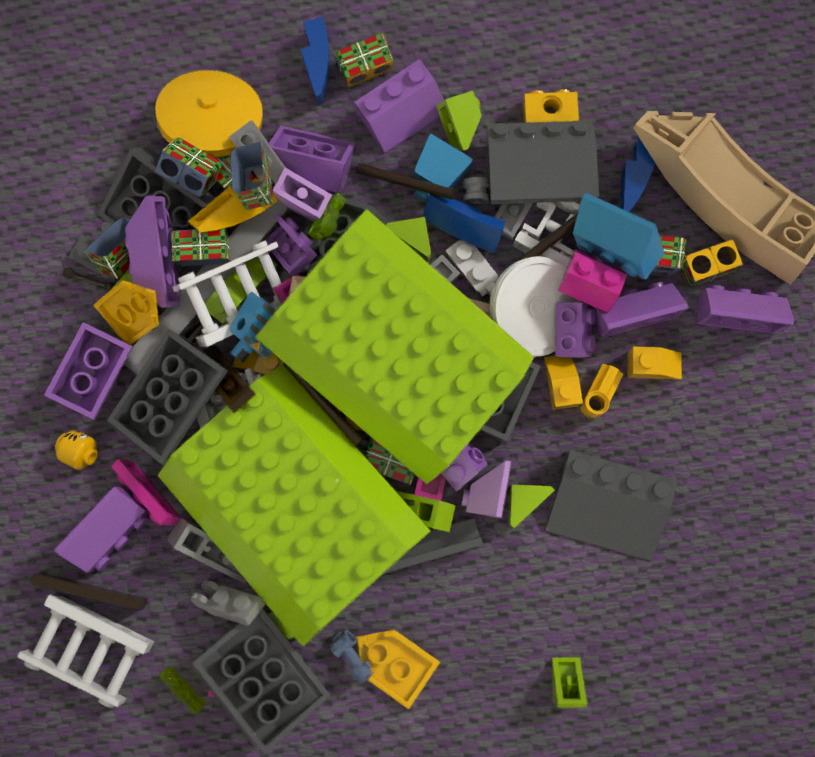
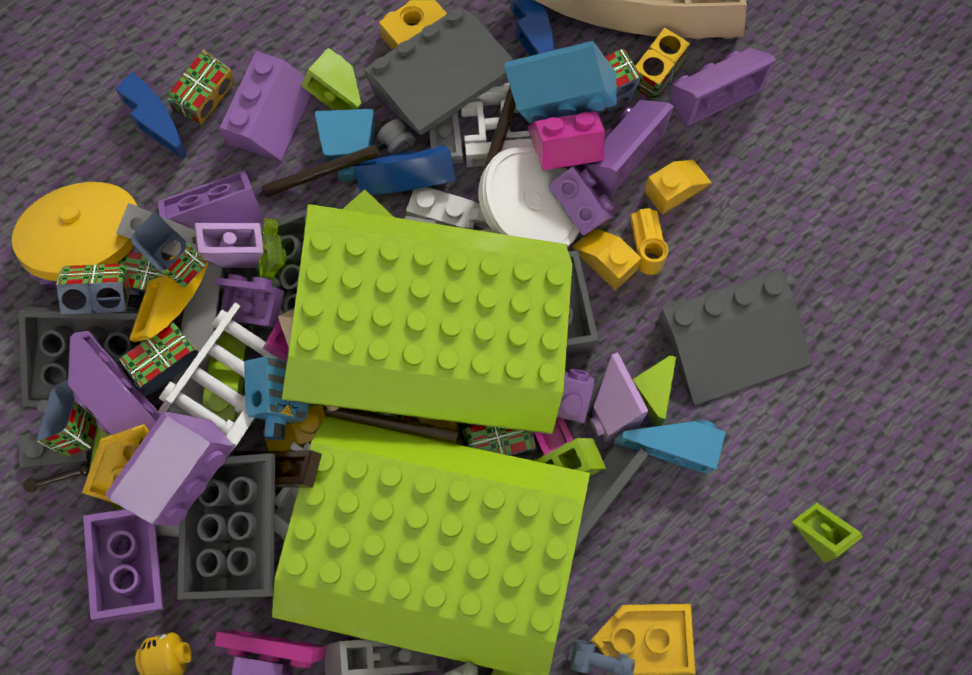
camera: 40 degrees left, 10 degrees down
(154, 333) = (170, 468): none -> slope
(517, 554) = (685, 444): none -> dark azure slope

